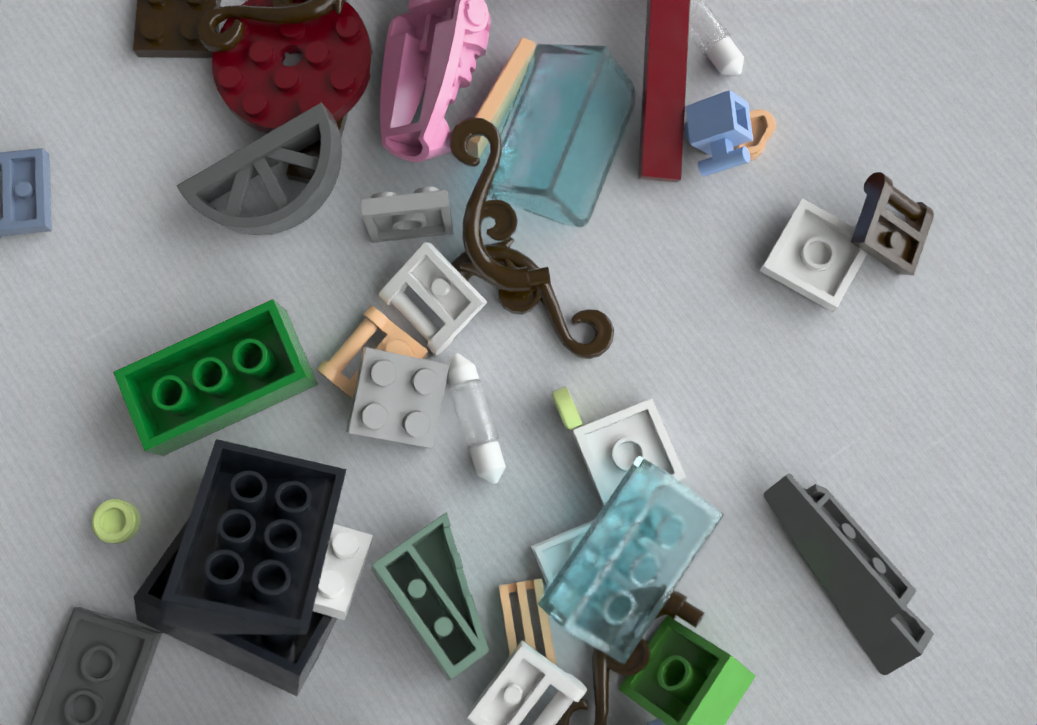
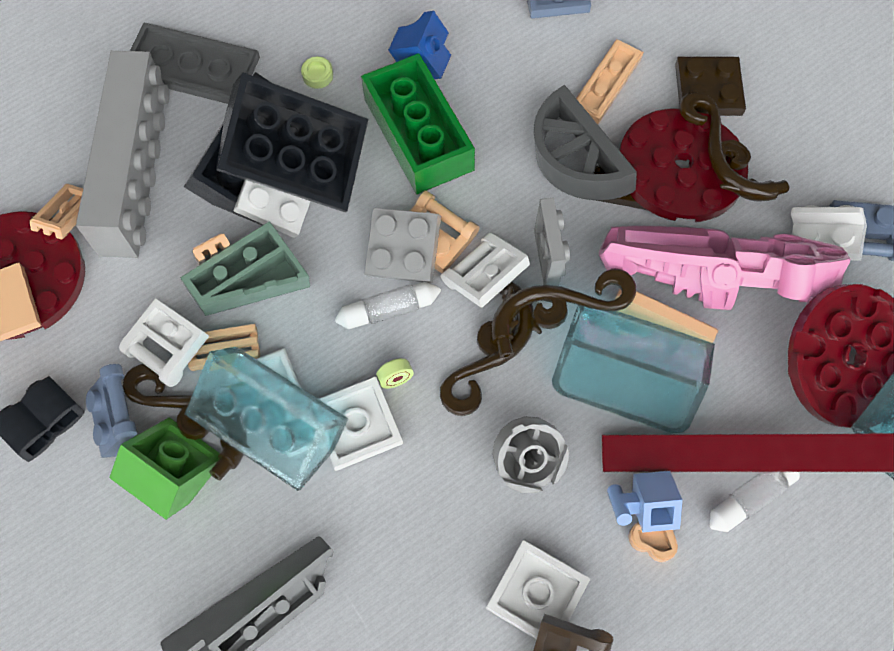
camera: 90 degrees right, 10 degrees down
(88, 372) = (426, 38): none -> blue brick
(158, 137) = (609, 79): none -> light nougat tile
(409, 642) = (210, 247): none -> light nougat tile
(669, 252) = (530, 454): none -> light grey cylinder

